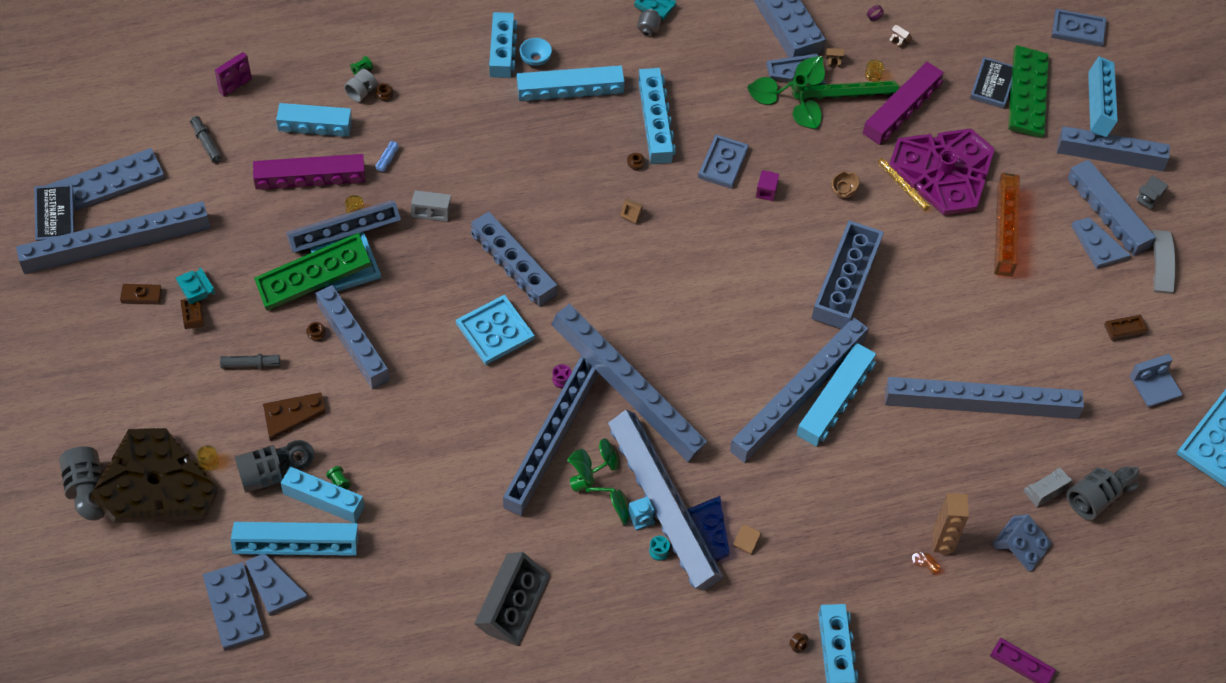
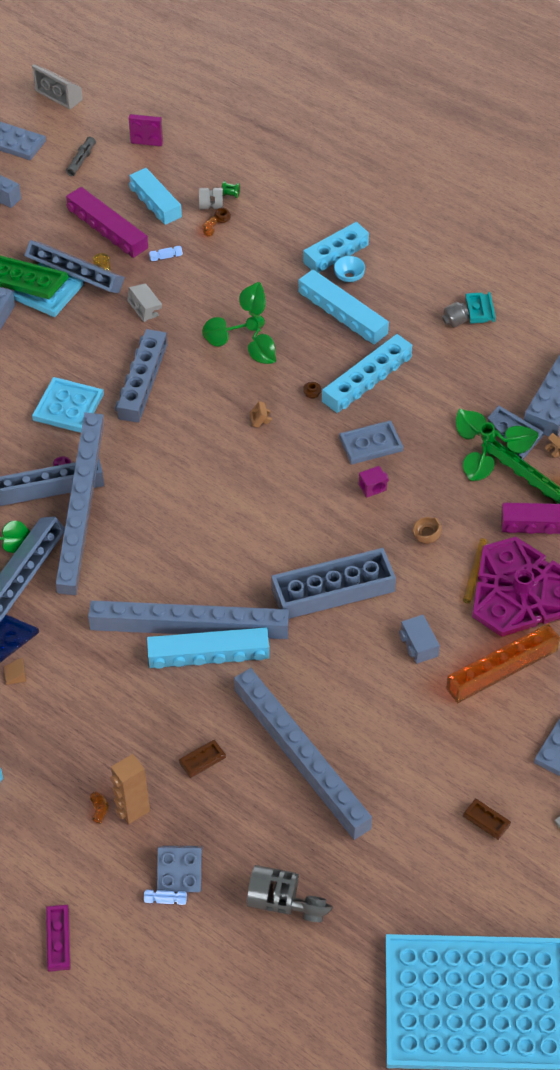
camera: 55 degrees right, 5 degrees down
(101, 101) = (56, 87): none -> light grey slope
(386, 110) = (207, 227): none -> clear orange arm
(529, 130) = (254, 301): none -> green plant
(936, 465) = (202, 758): none -> reddish brown plate
(940, 258) = (419, 639): none -> sand blue brick
(1041, 567) = (165, 897): none -> light blue axle
(1048, 487) = (251, 854): light grey hinge -> none
(1155, 381) = (447, 874): sand blue bracket -> none

